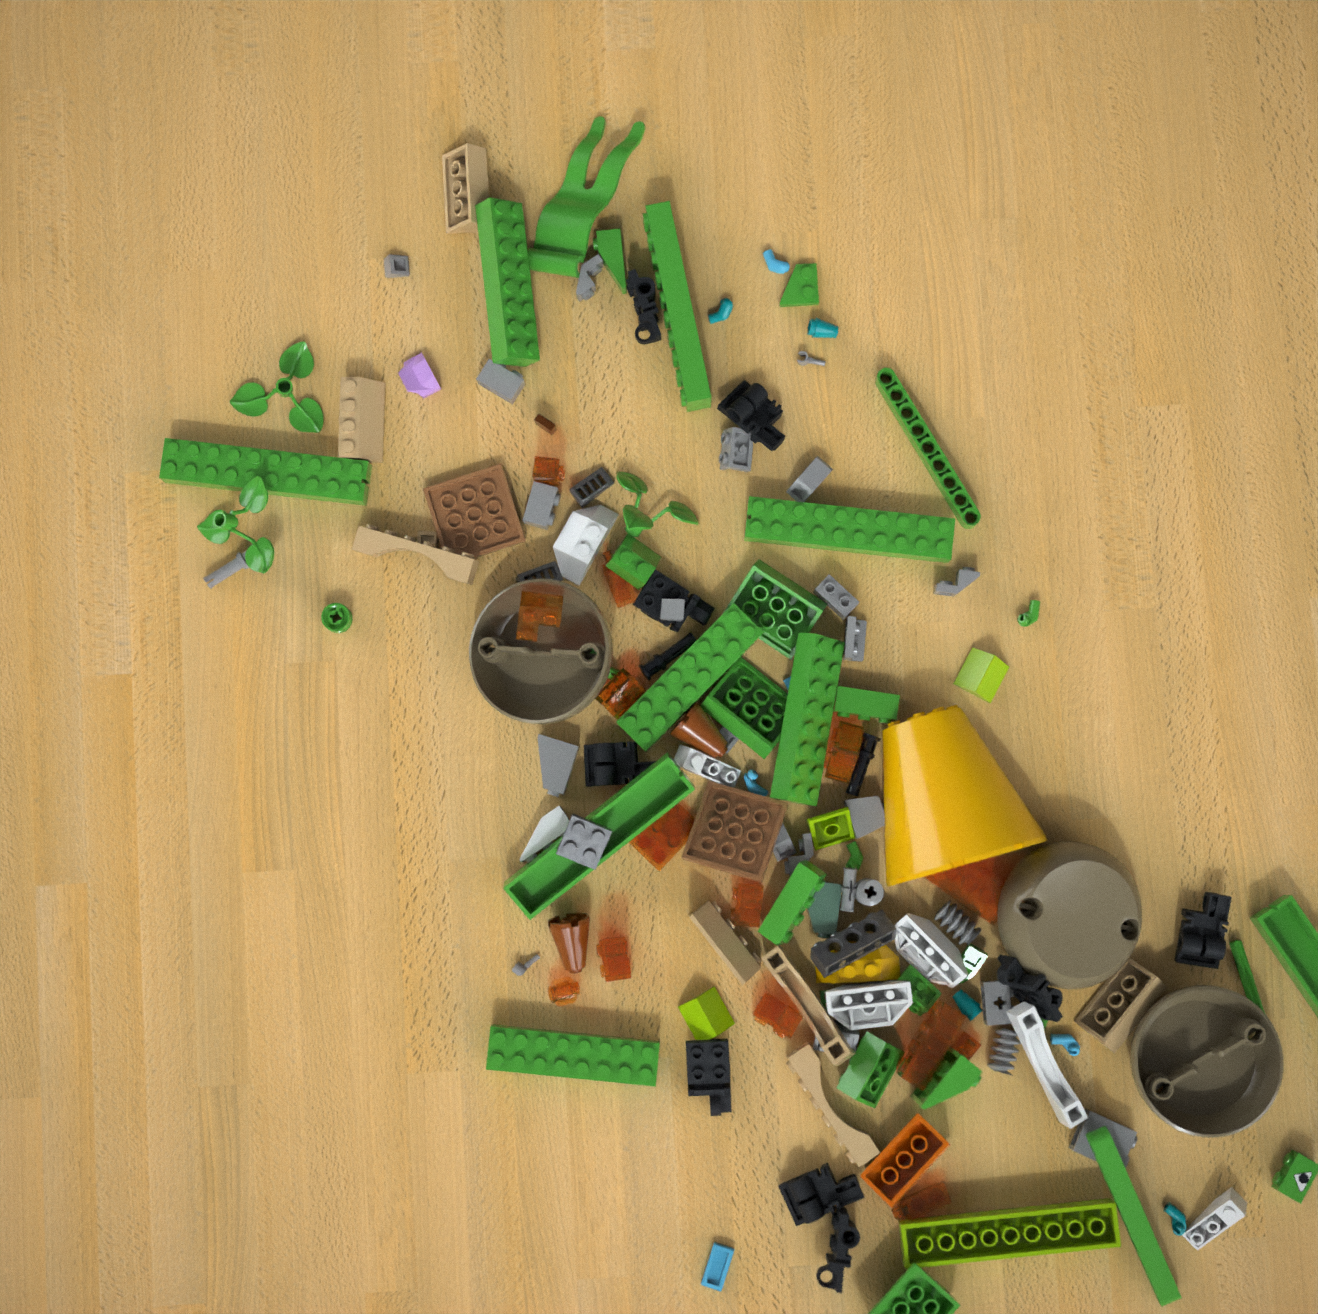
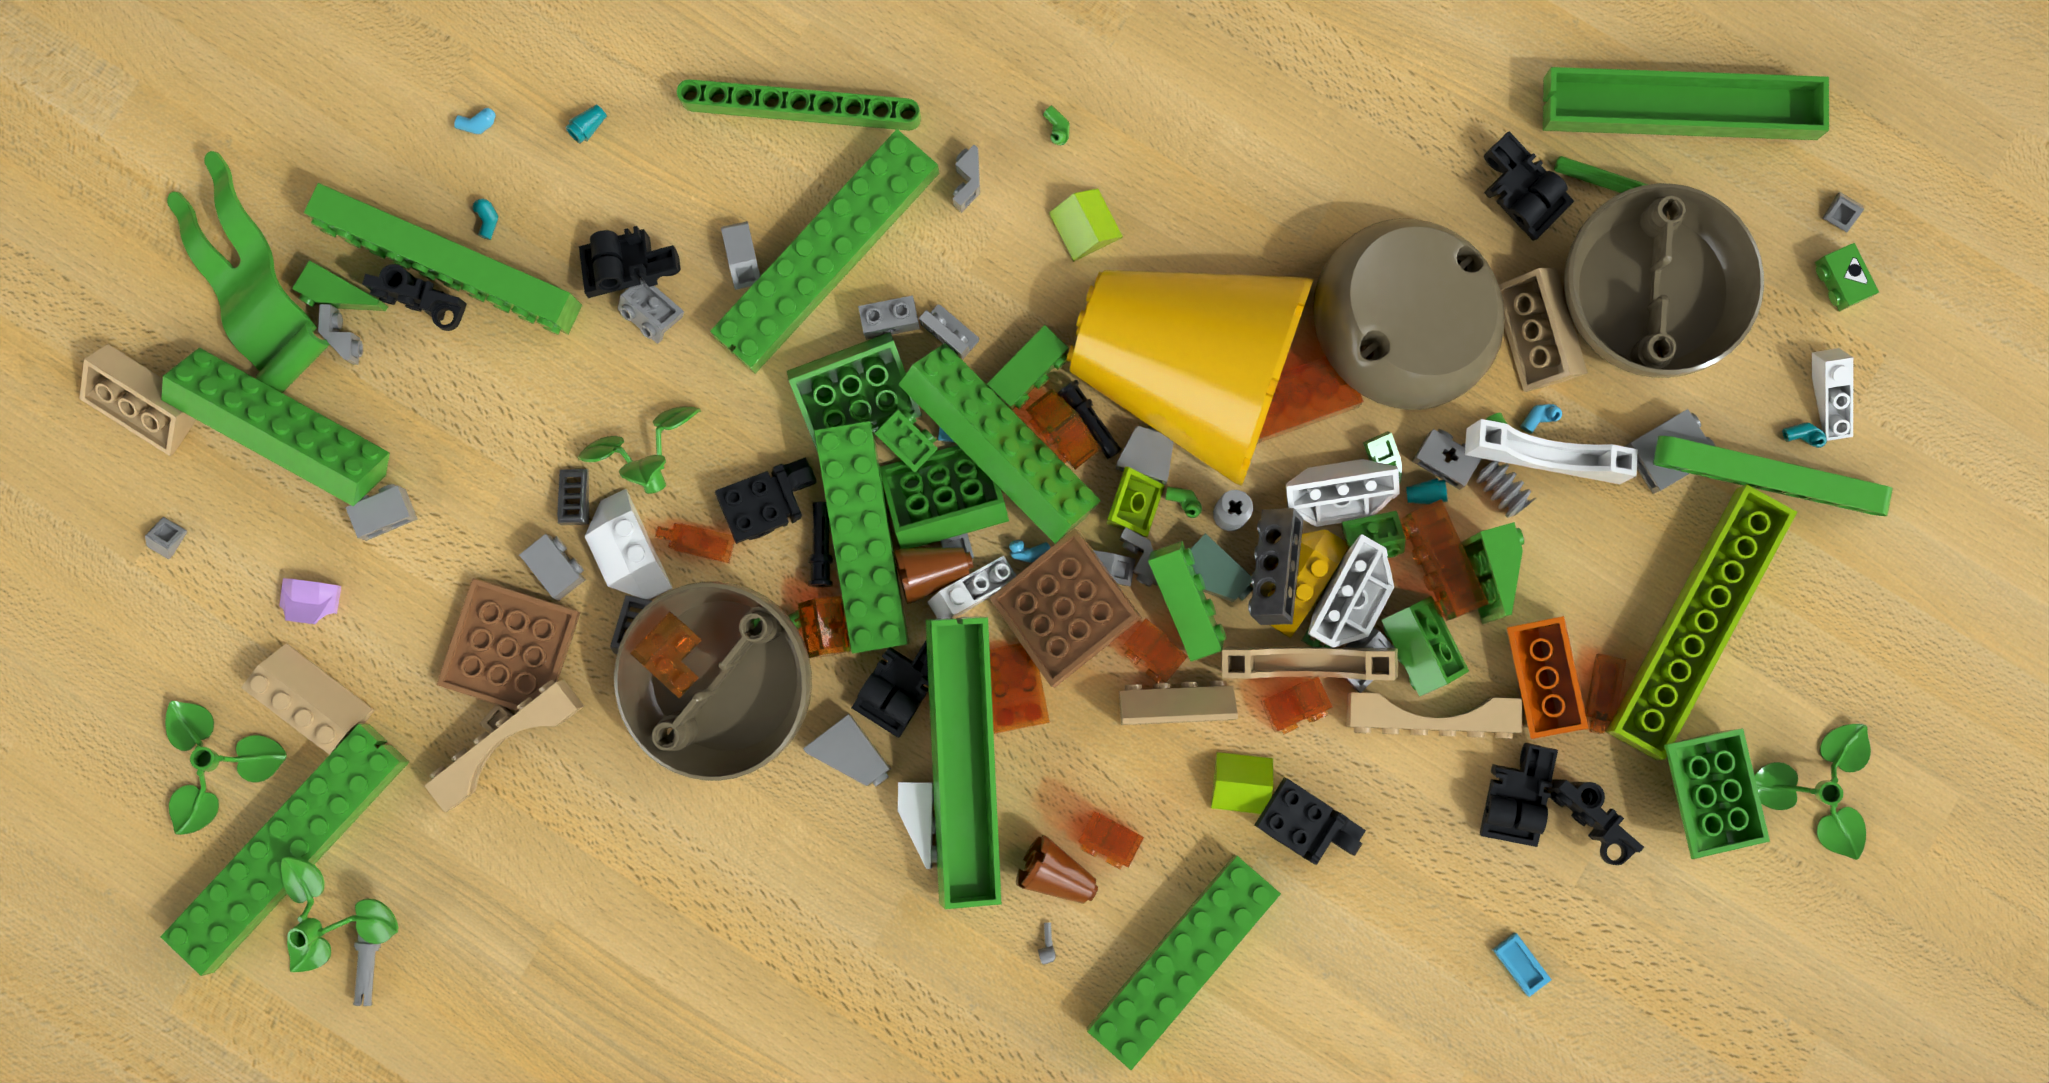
camera: 55 degrees left, 0 degrees up
(328, 618) = (521, 887): bright green wheel -> none
(545, 424) = (465, 497): reddish brown tile -> none
(548, 471) = (519, 530): clear orange brick -> none
(563, 991) = (1106, 922): clear orange head -> none
(584, 841) = (957, 781): flat silver plate -> none
(633, 561) = (690, 509): bright green slope -> none
(672, 609) = (773, 502): light grey slope -> none
(768, 661) = (906, 440): none -> bright green bracket
(802, 287) = (524, 112): bright green wing -> none
(809, 360) = (609, 162): light grey hand -> none
(848, 889) = (1215, 529): light grey pin -> none
(957, 923) = (1333, 439): light grey piece -> none
(966, 1045) = (1469, 523): clear orange tile -> none
(1030, 988) = (1458, 410): black plate -> none

